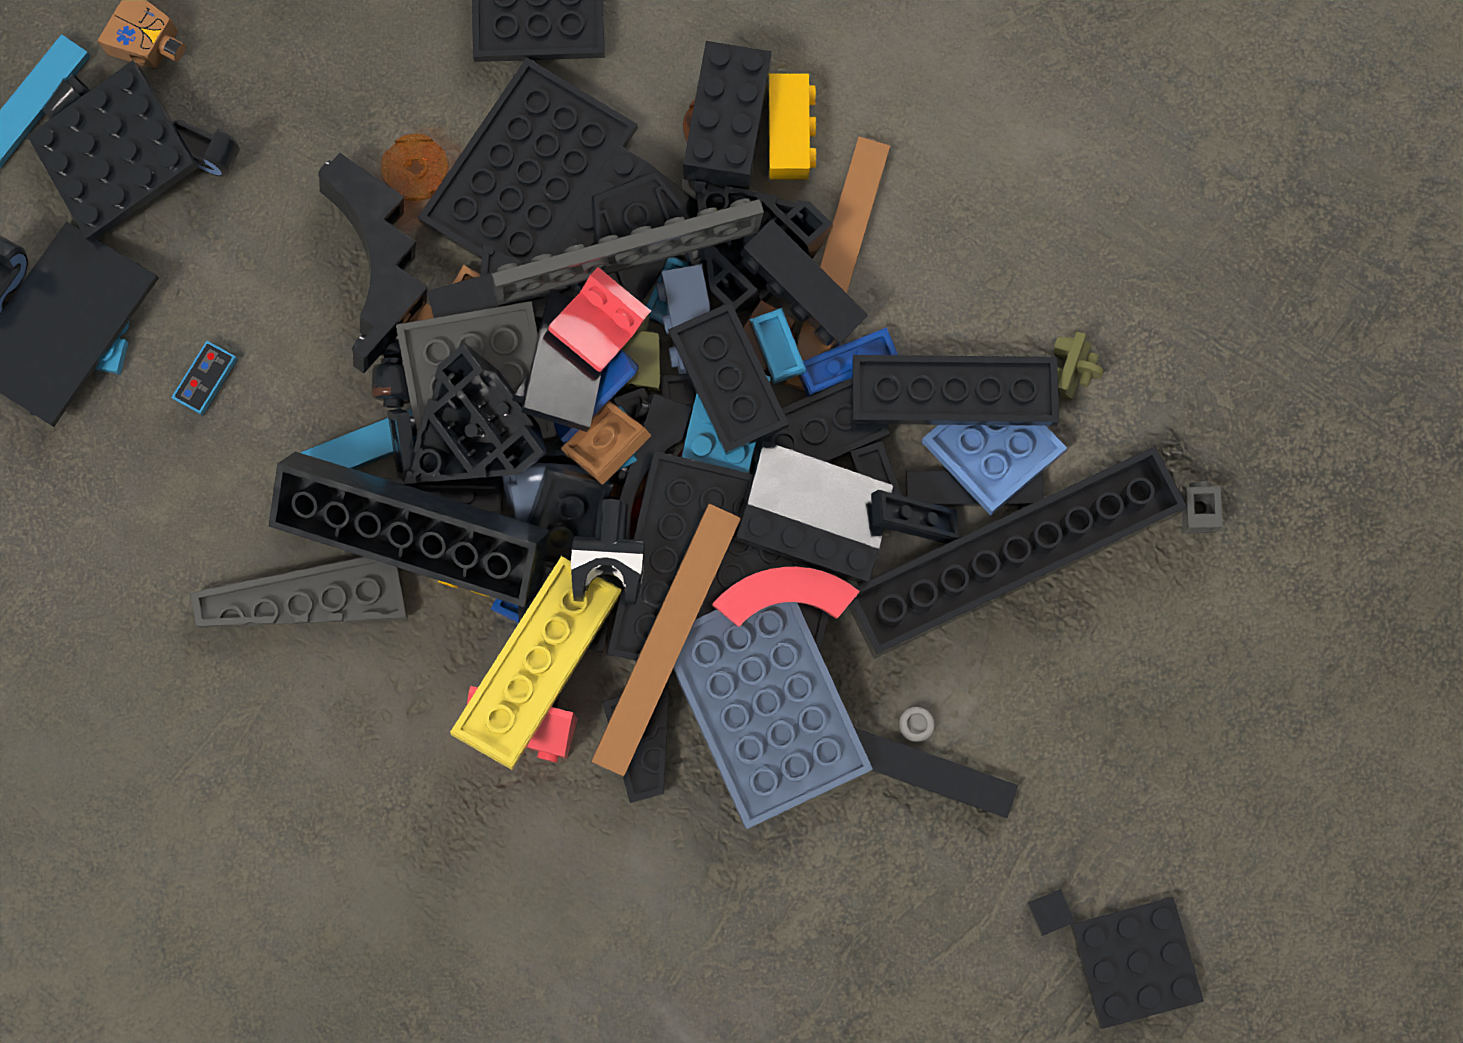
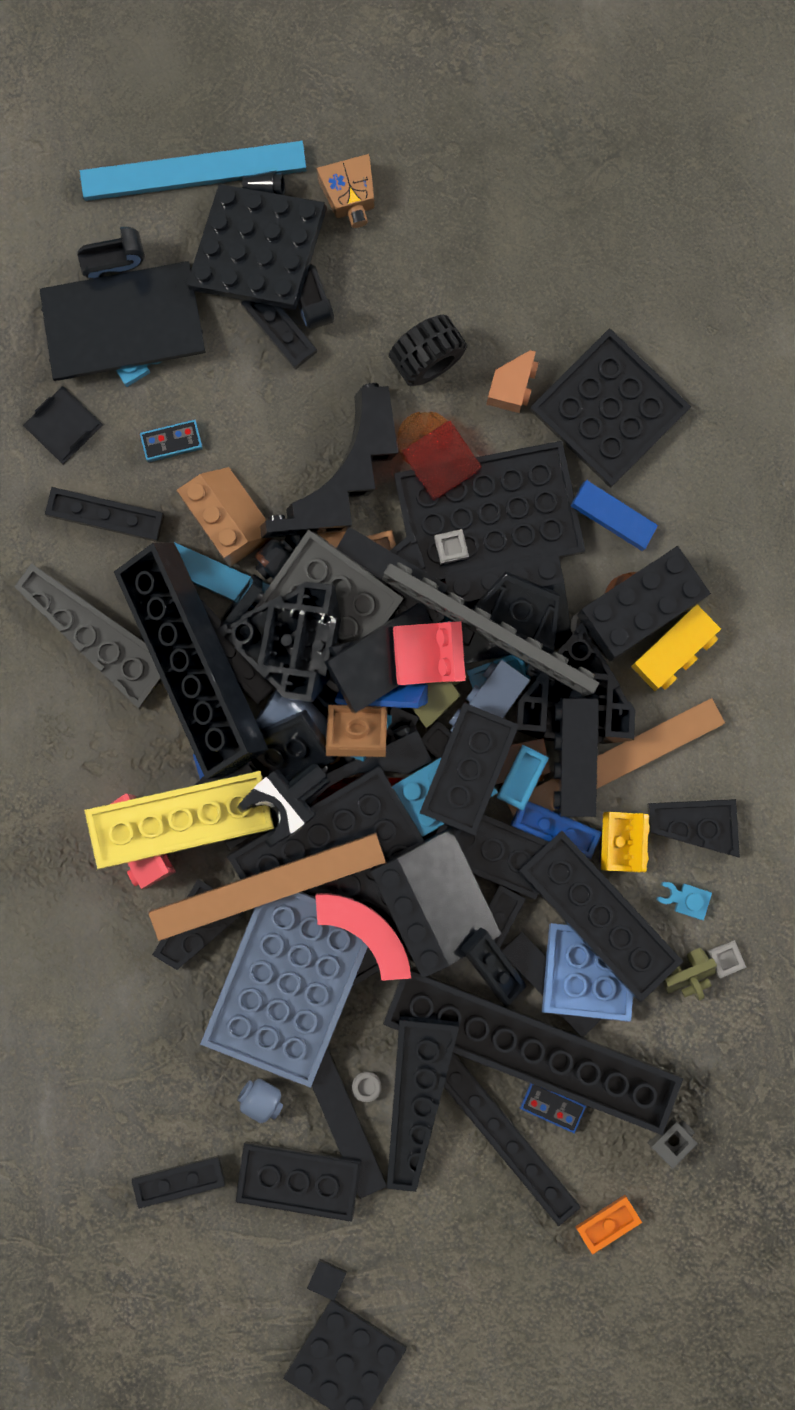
camera: 45 degrees right, 5 degrees up
(98, 458) = (62, 425): none -> black piece
(204, 200) = (281, 332): none -> black plate
(210, 492) = (104, 514): none -> black plate
(312, 390) = (225, 513): none -> medium nougat slope
(342, 91) = (427, 350): none -> black tyre
(437, 55) = (510, 383): none -> nougat slope
(445, 167) = (441, 459): none -> clear red plate
(526, 227) = (451, 546): none -> light grey tile
(630, 74) = (614, 515): none -> blue tile
(843, 825) = (260, 1100): none -> sand blue head
(848, 963) = (178, 1182): none -> black plate
(912, 316) = (625, 842): none -> yellow bracket
(943, 857) = (298, 1181): none -> black tile
(950, 662) = (420, 1076): none -> black wing
(953, 243) = (698, 823): none -> black wing
(1009, 310) = (689, 900): none -> dark azure plate
(1053, 647) = (509, 1142): none -> black tile
(1079, 582) = (553, 1107): none -> tile
(1088, 322) = (727, 958): none -> light grey tile
(1221, 626) = (608, 1224): none -> orange plate

